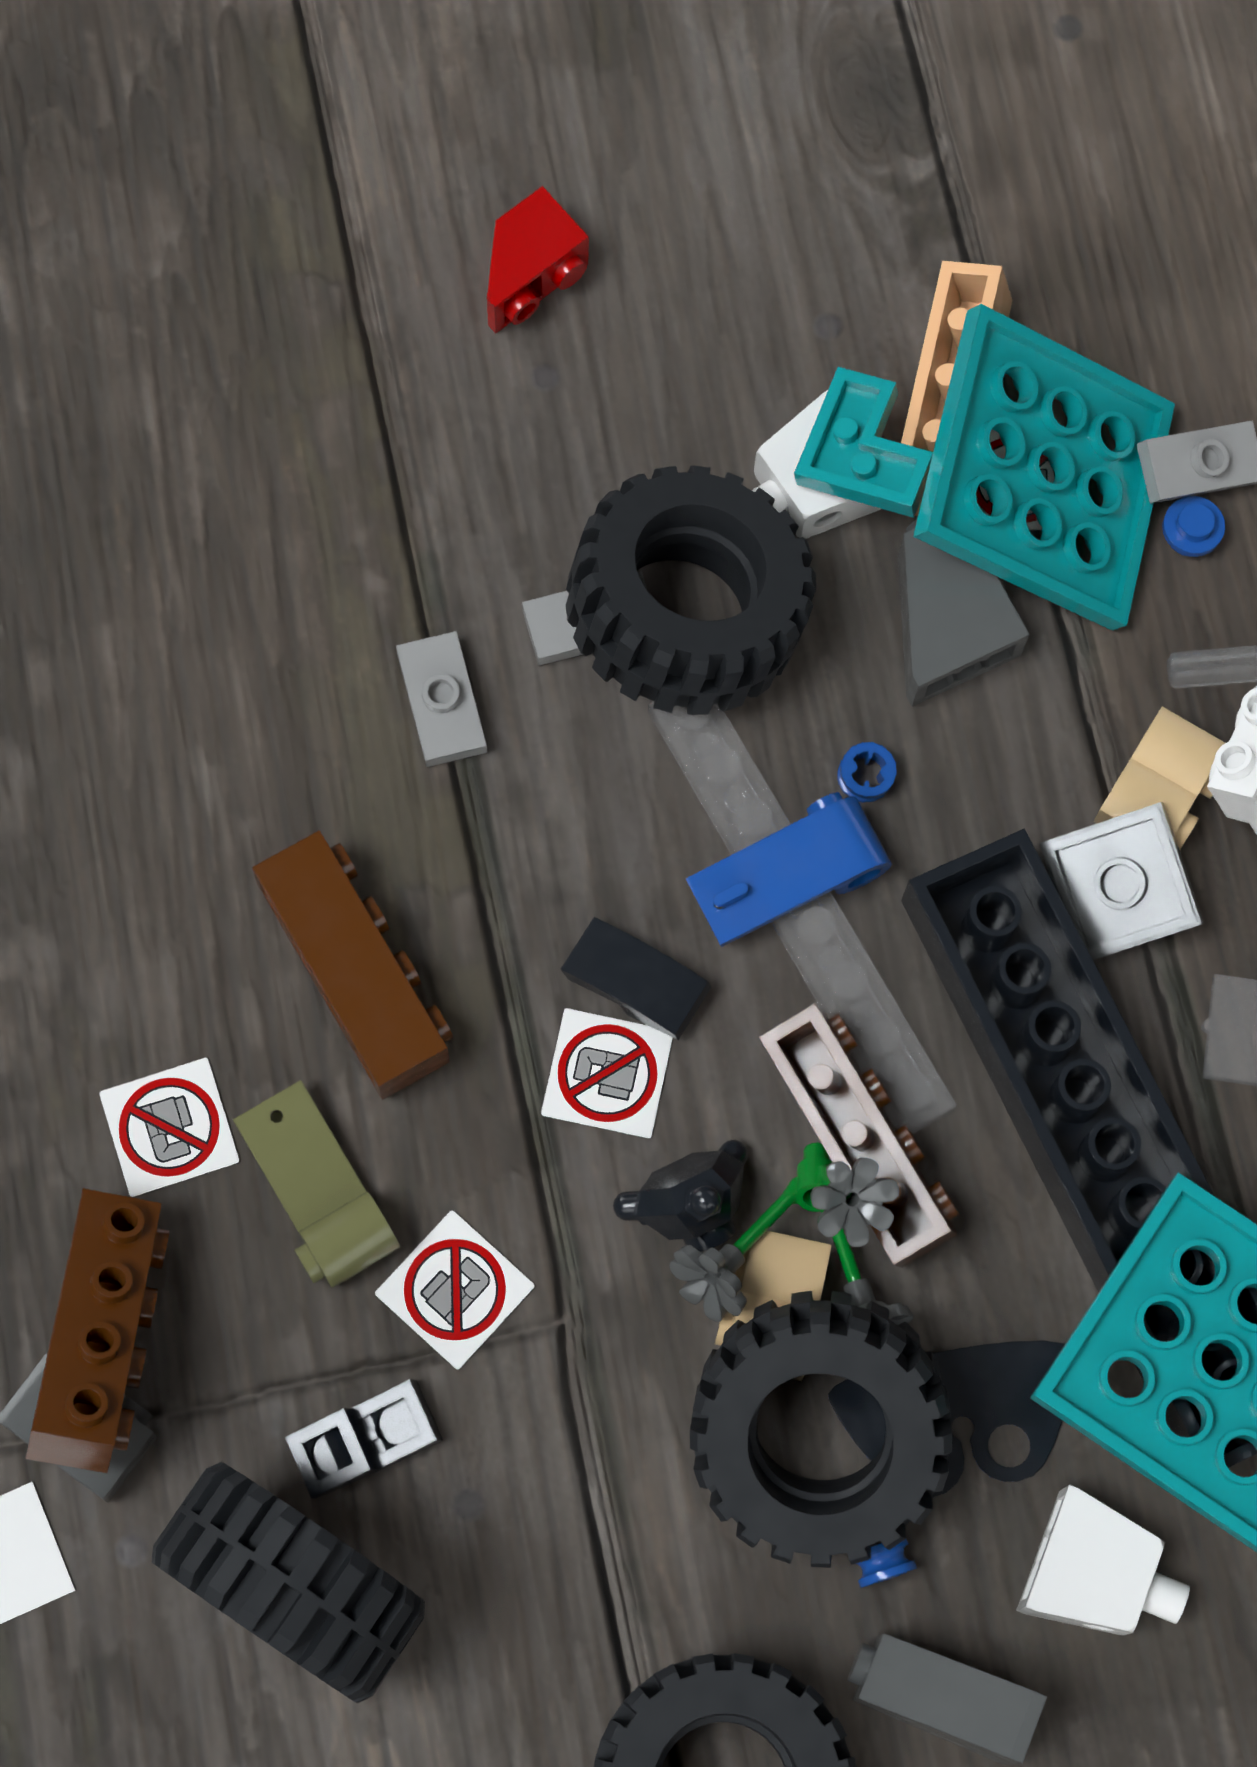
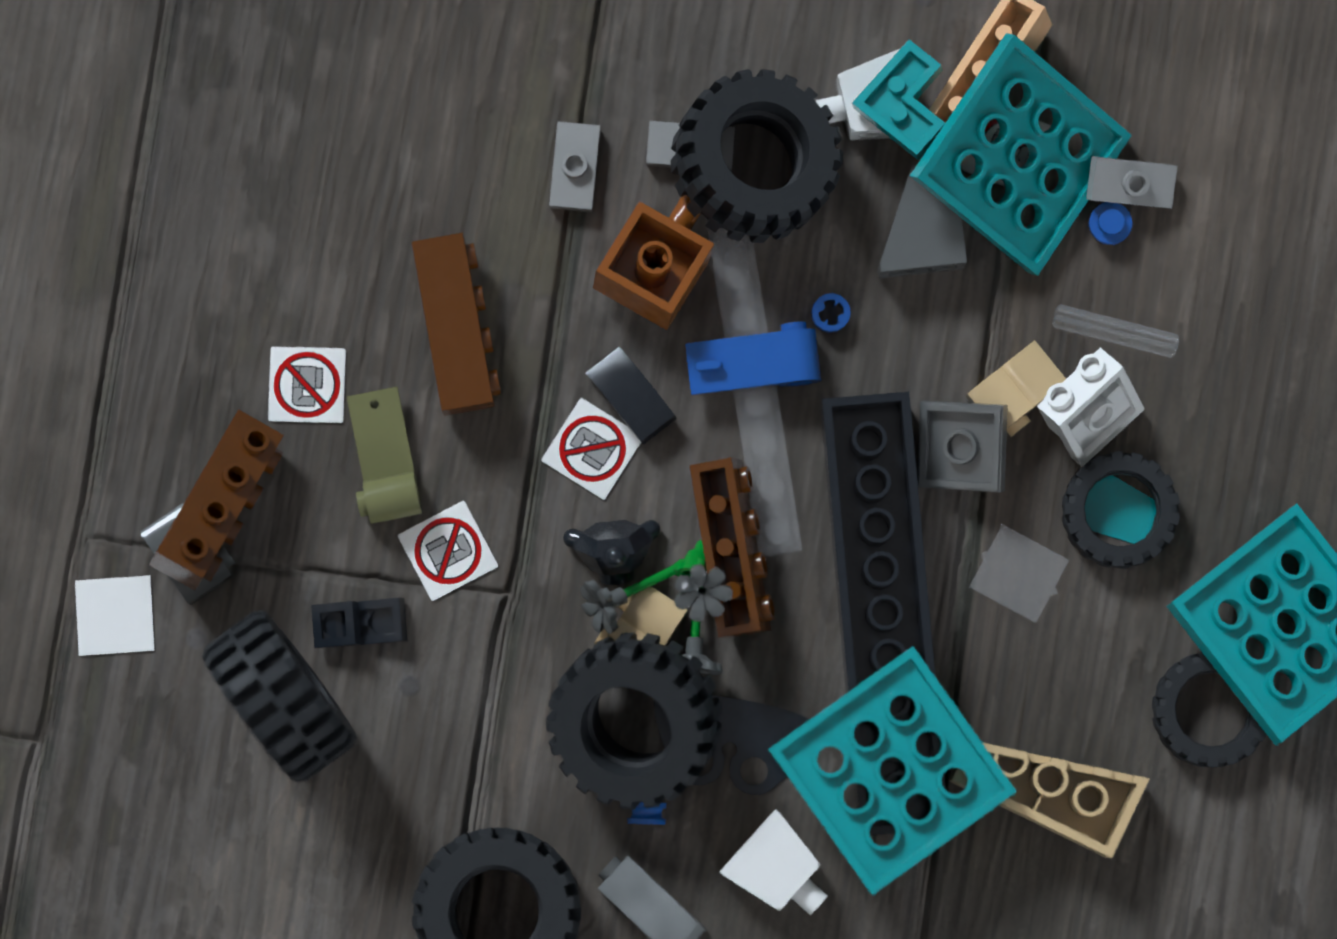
camera: 25 degrees right, 10 degrees up
(602, 782) = (661, 240): none -> dark orange brick

